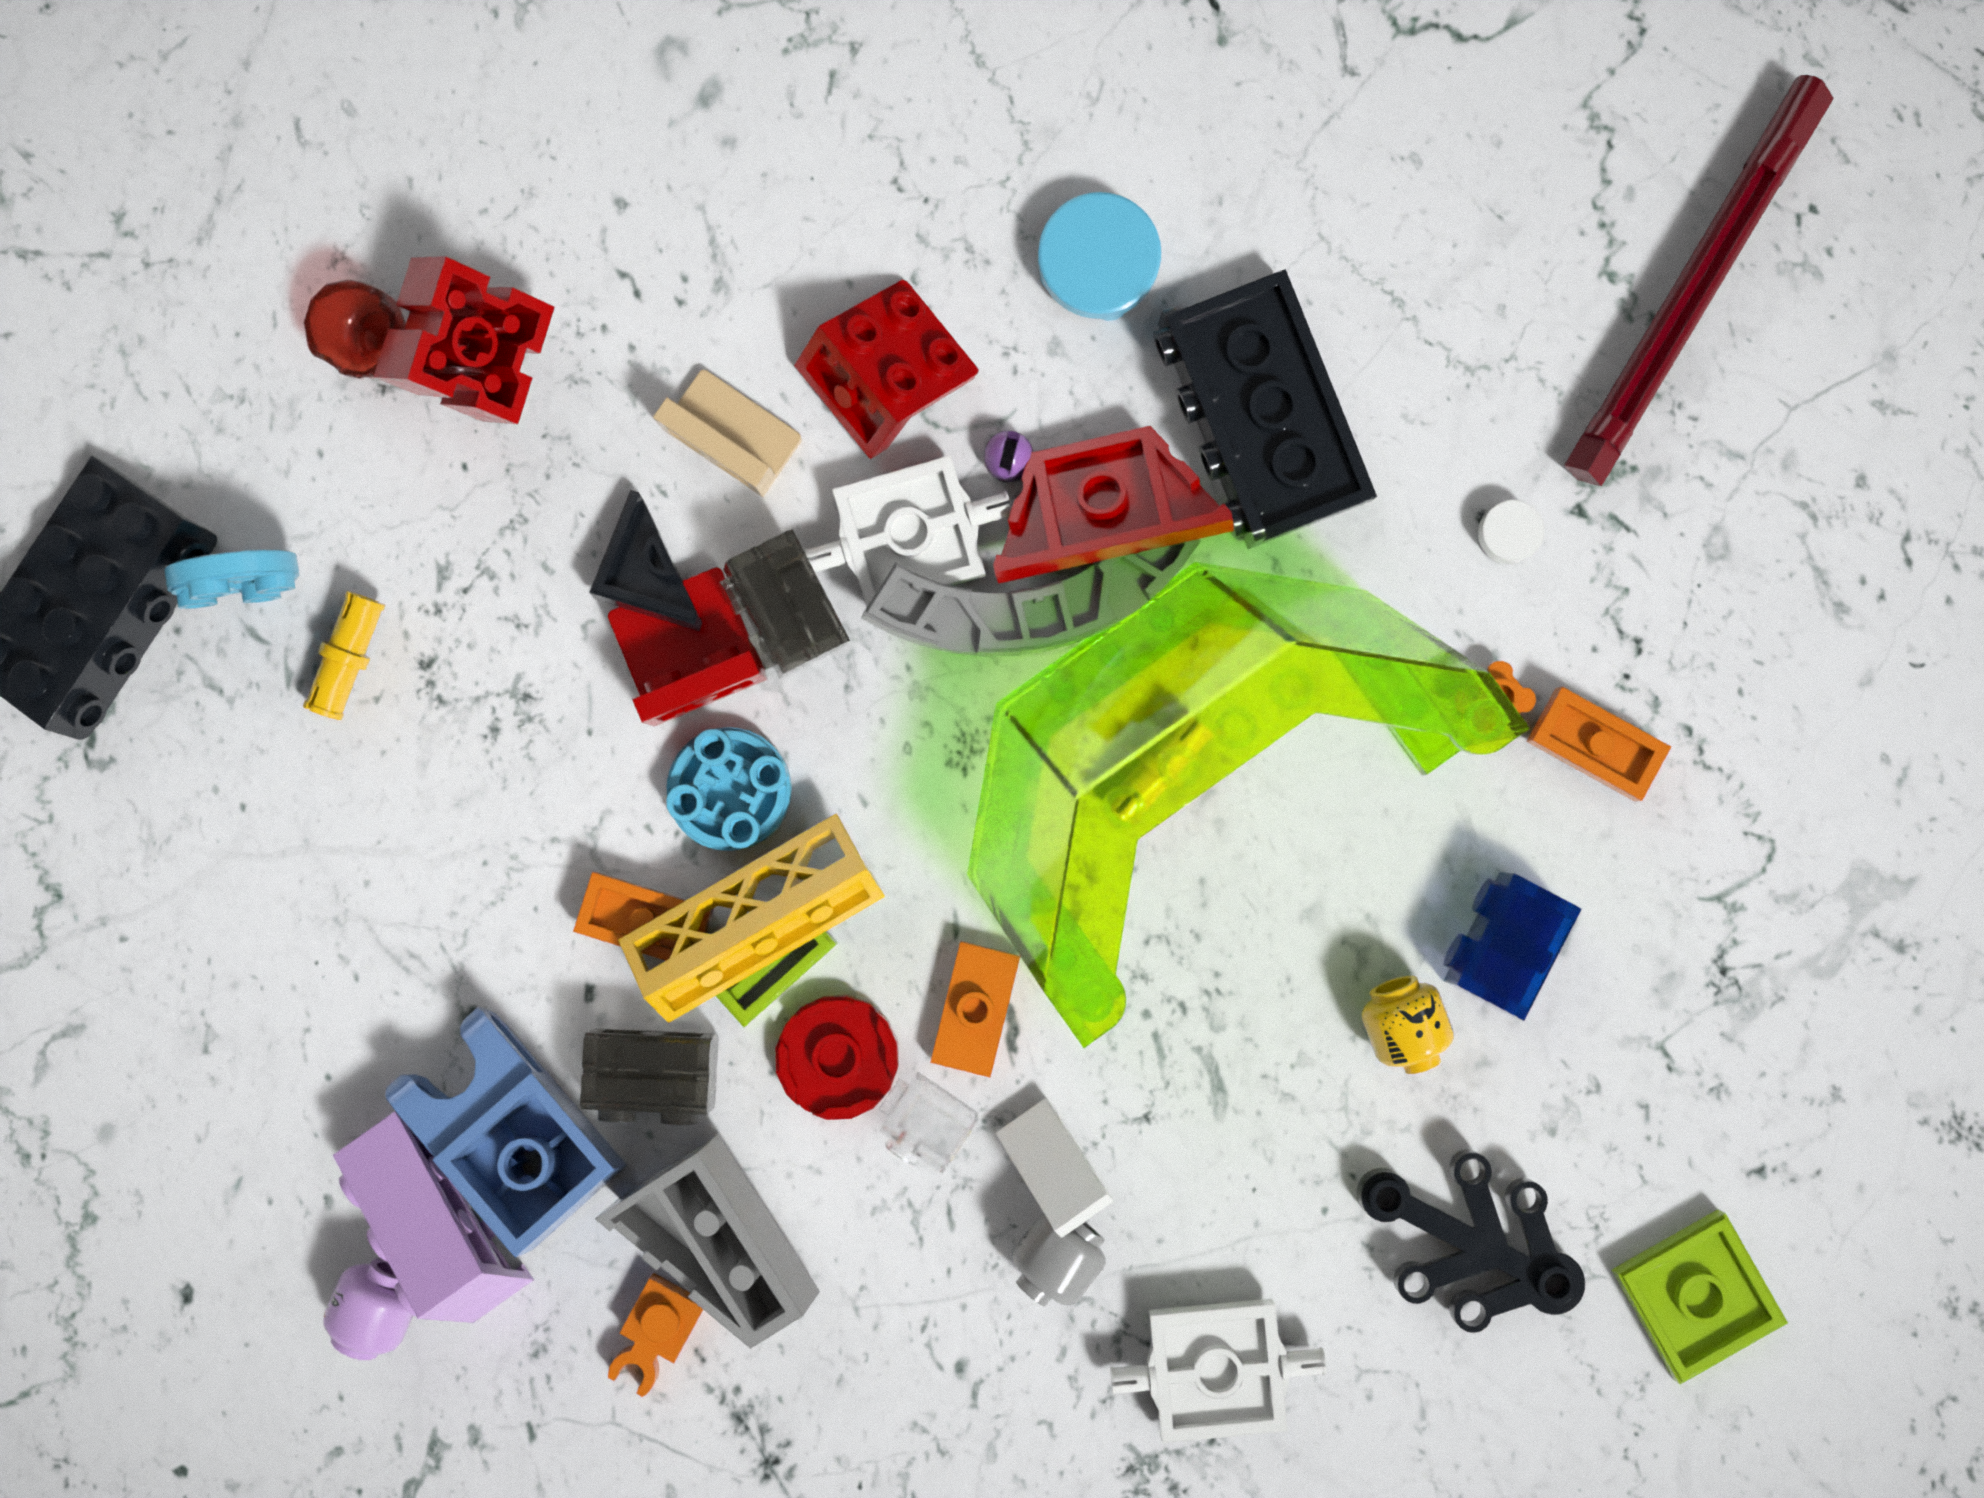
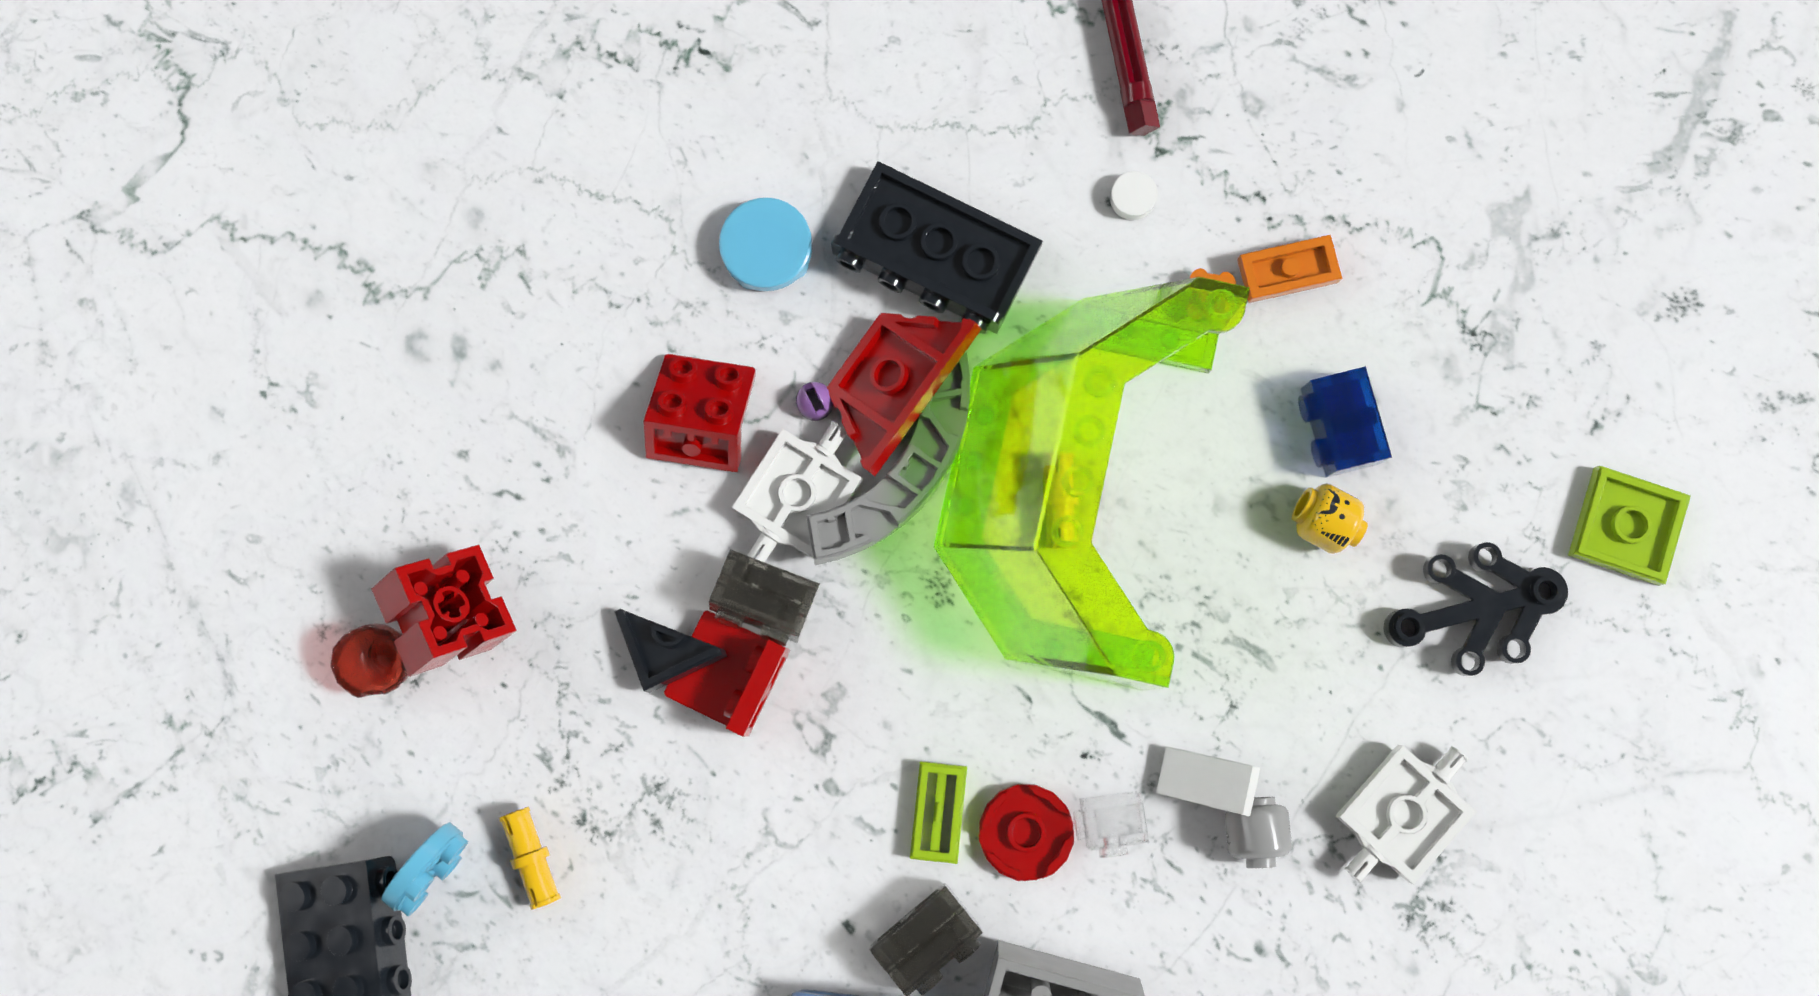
camera: 40 degrees left, 5 degrees down
(619, 907) = (843, 854): orange plate -> none
(728, 789) = (824, 733): medium azure tile -> none
(730, 431) = (642, 527): tan panel -> none
(755, 937) = (920, 800): yellow fence -> none
(975, 1009) = (1080, 732): orange plate -> none

